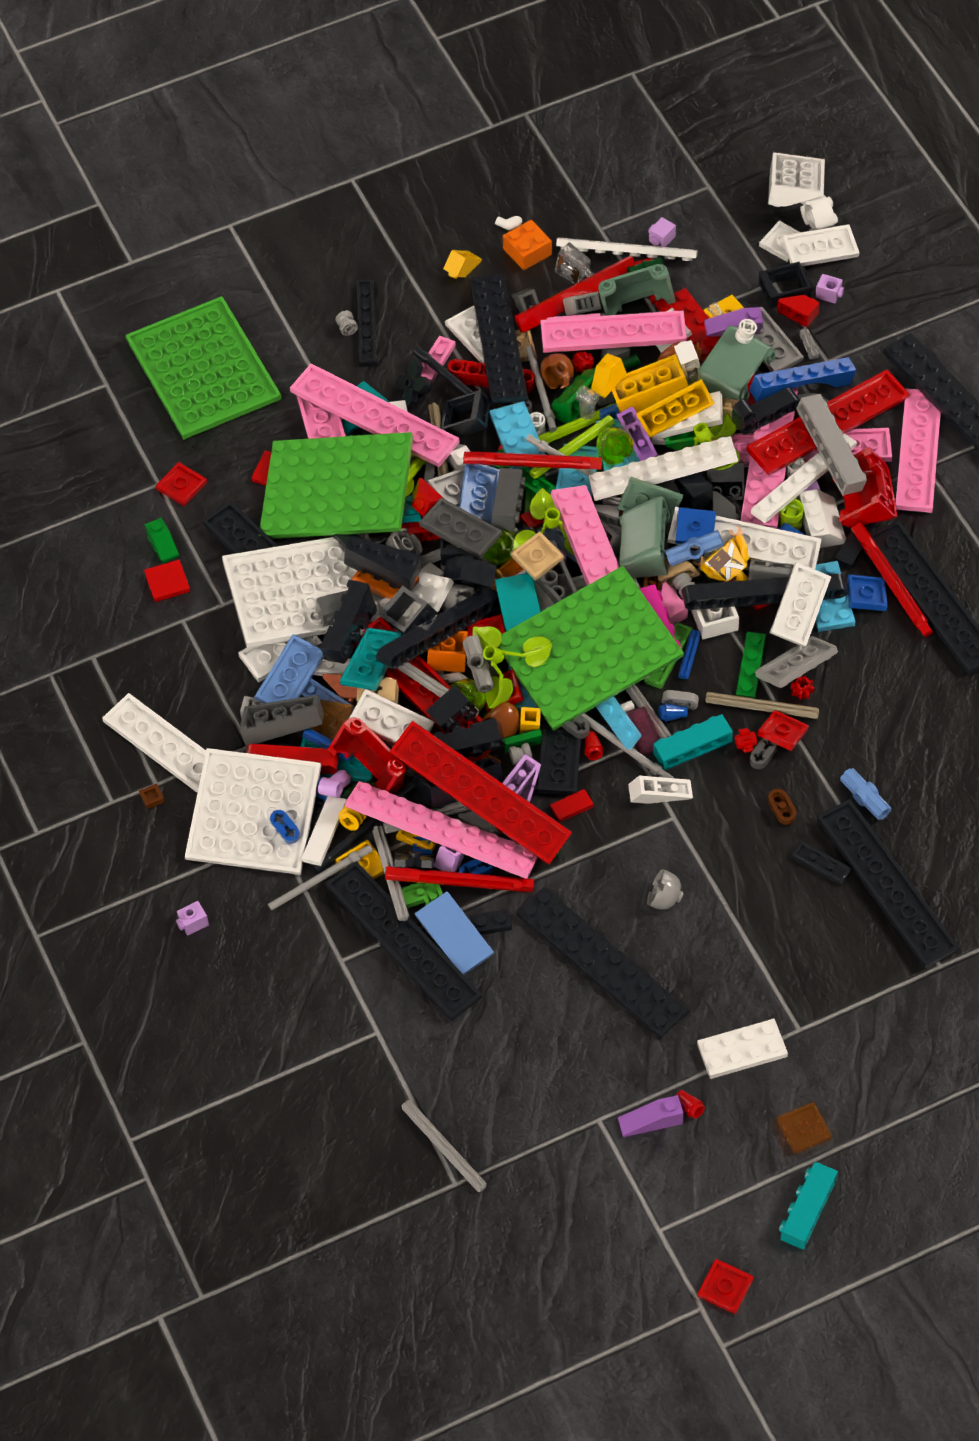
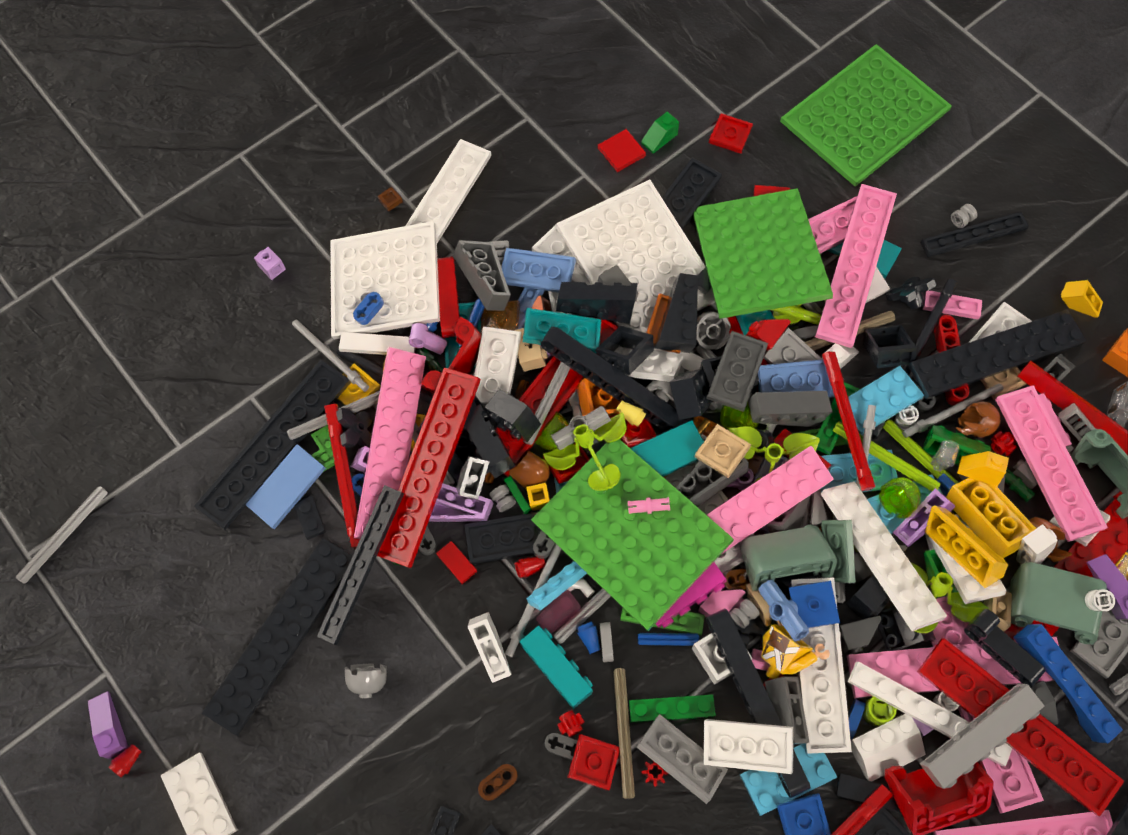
camera: 75 degrees right, 10 degrees up
(474, 620) = (632, 414): none -> light yellow cone
(505, 755) = (472, 477): none -> slope
(557, 873) = (360, 565): none -> black plate
(574, 620) = (649, 505): none -> bright pink pin

